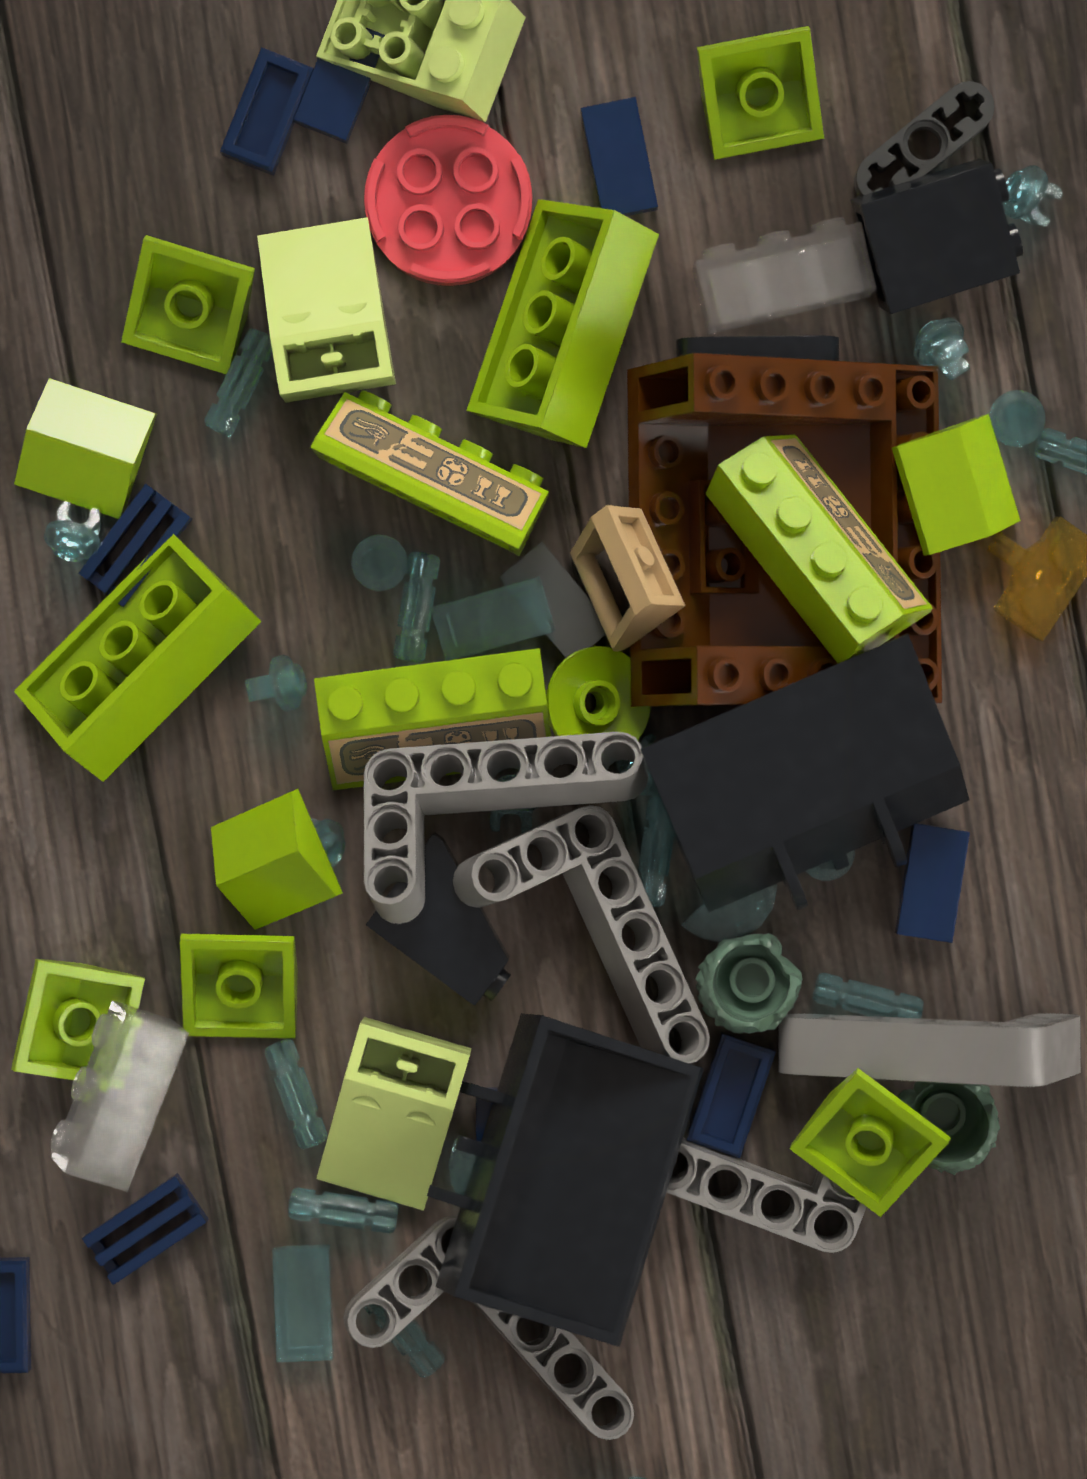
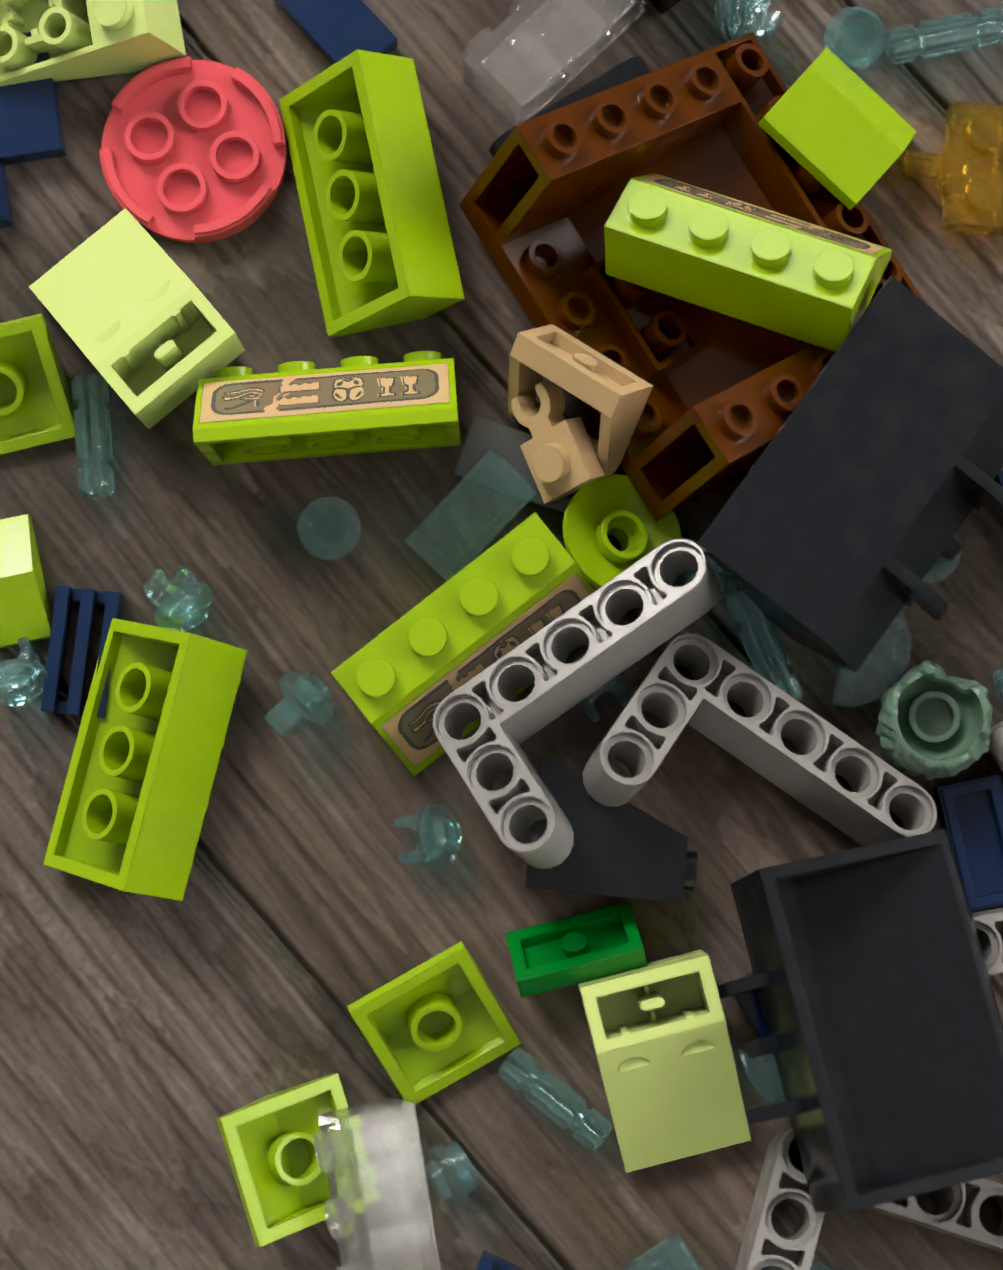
camera: 30 degrees left, 5 degrees down
(186, 1102) = (451, 1173): none -> clear light blue plate
(232, 550) = (180, 601): none -> clear light blue plate
(272, 861) = (396, 879): lime slope -> none
(343, 1210) = (671, 1188): clear light blue axle -> none
(376, 992) = (576, 949): none -> green plate
(415, 606) = (390, 549): clear light blue axle -> none
(587, 610) = (560, 449): none -> tan plate

